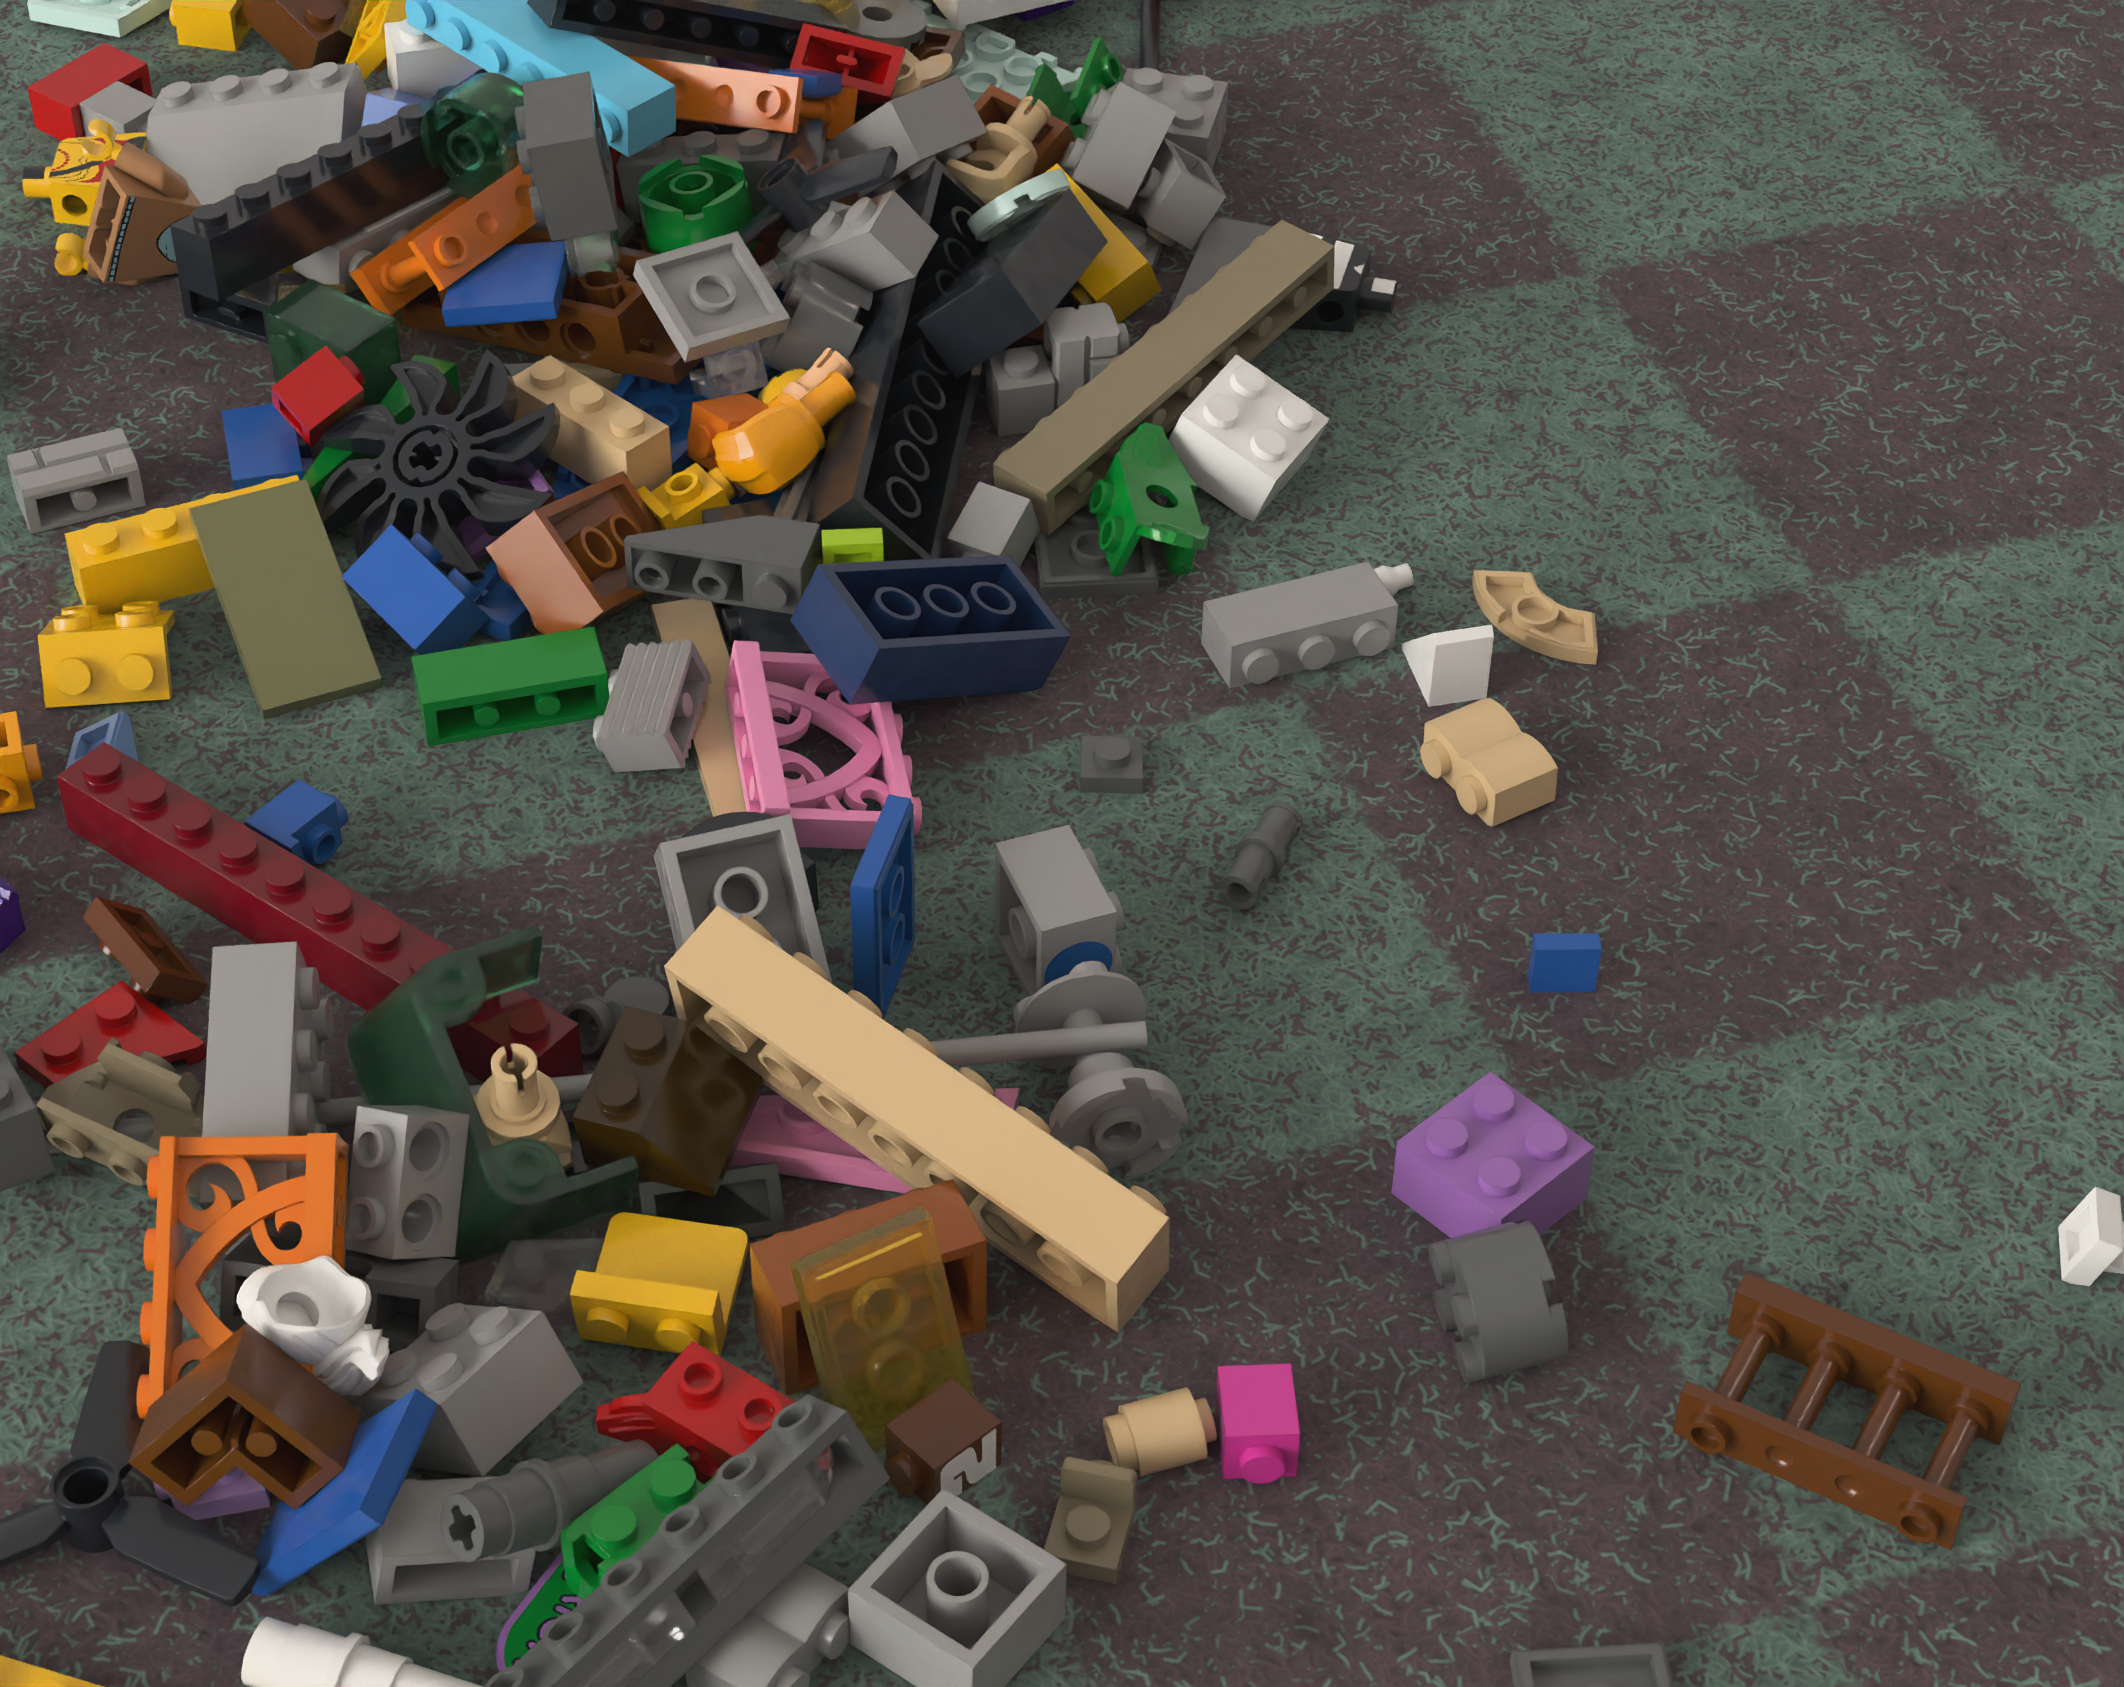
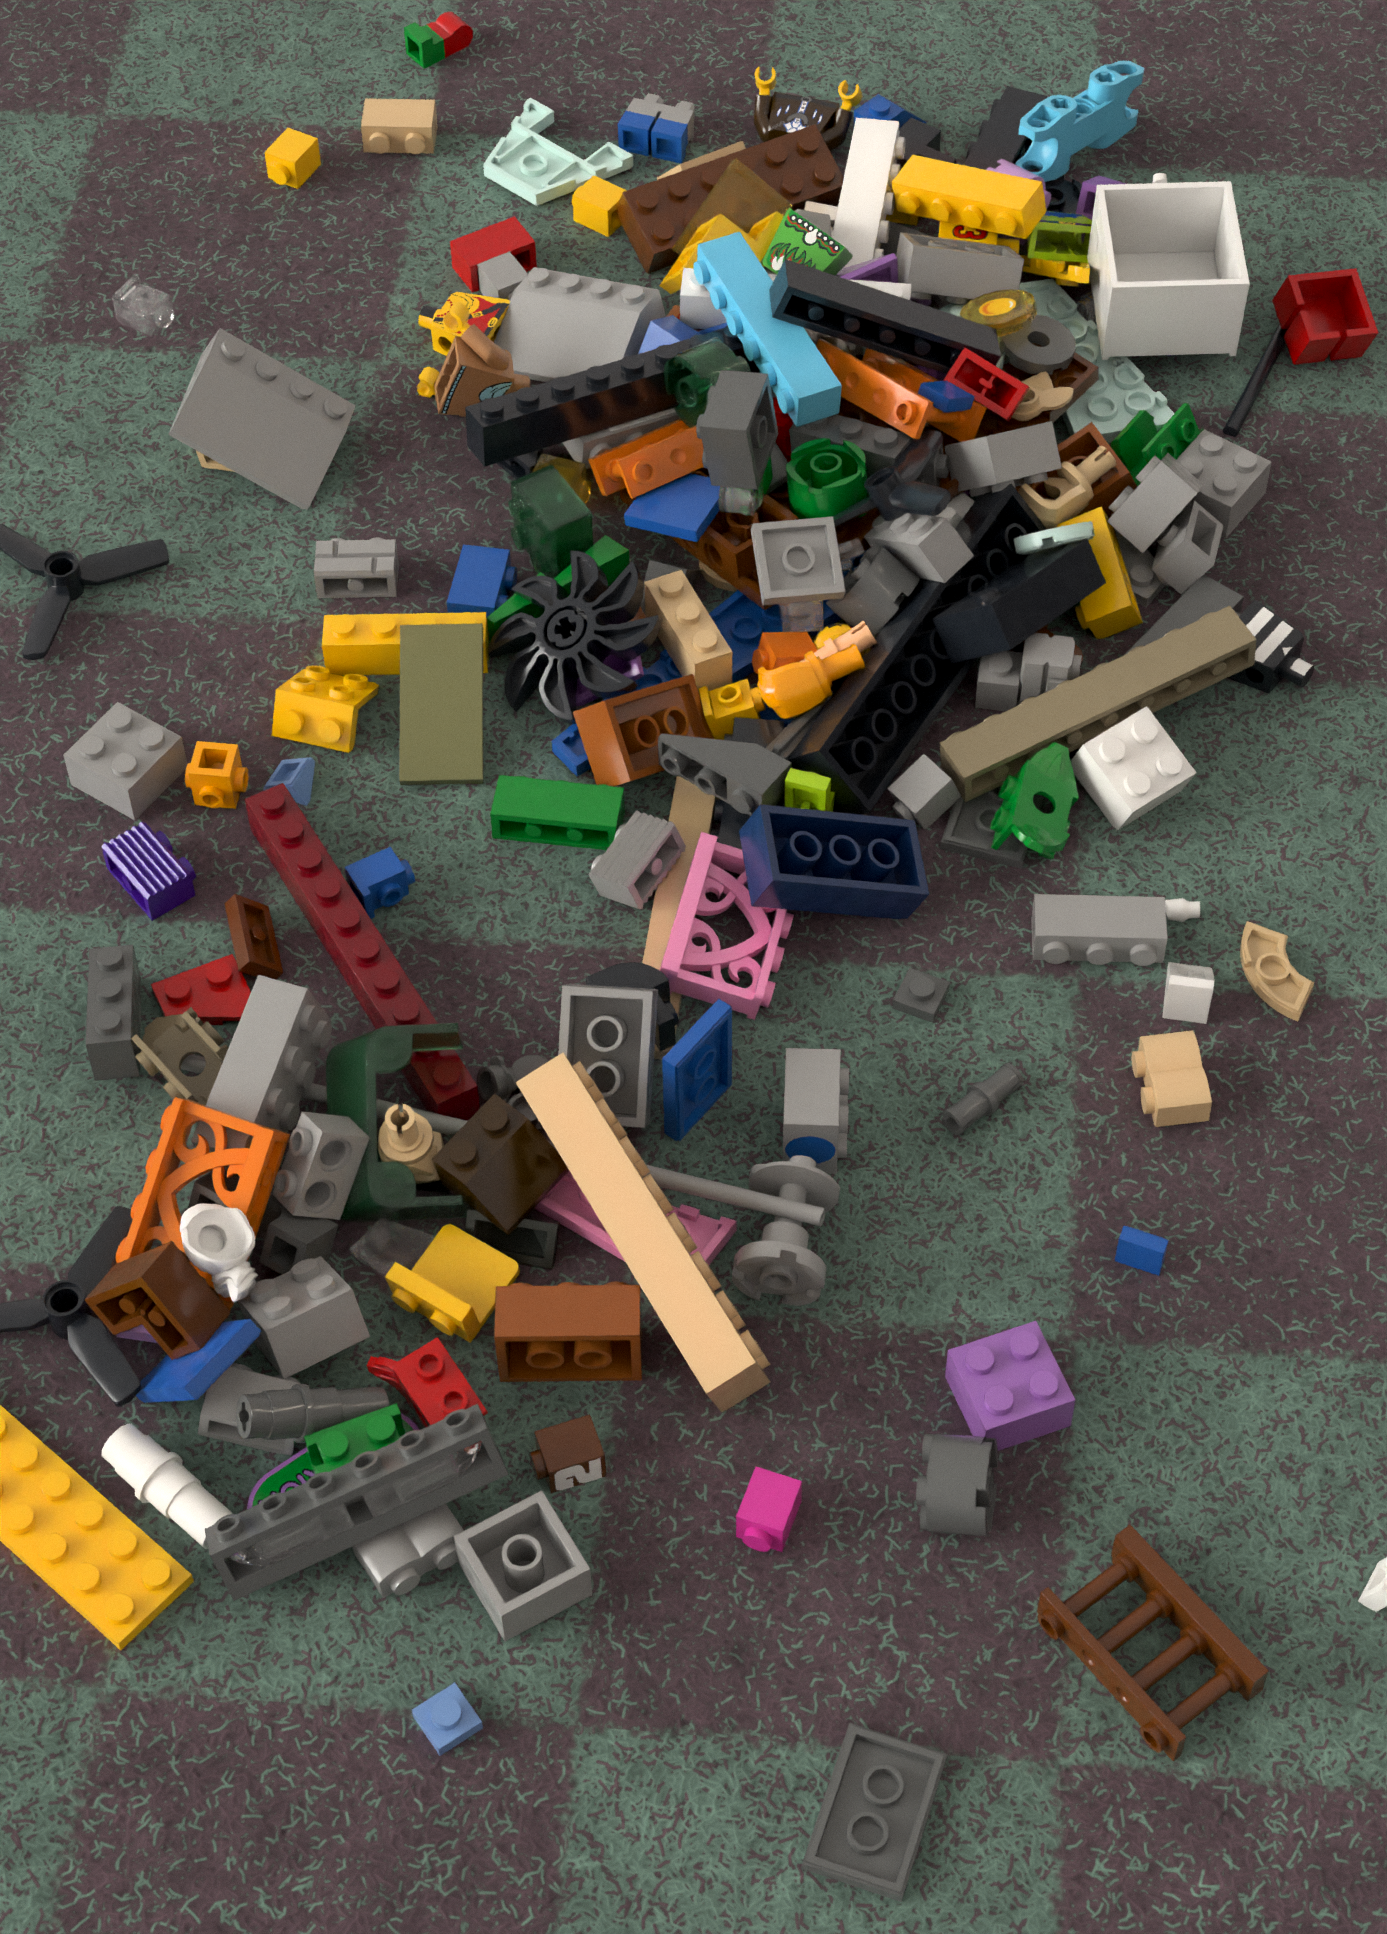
camera: 25 degrees right, 10 degrees up
(318, 394) = (521, 557): red brick -> none
(415, 595) = (524, 727): blue brick -> none
(881, 1321) = (554, 1368): clear yellow tile -> none
(1093, 1518) = (636, 1538): dark tan bracket -> none
(1160, 1432) = (706, 1494): tan brick -> none

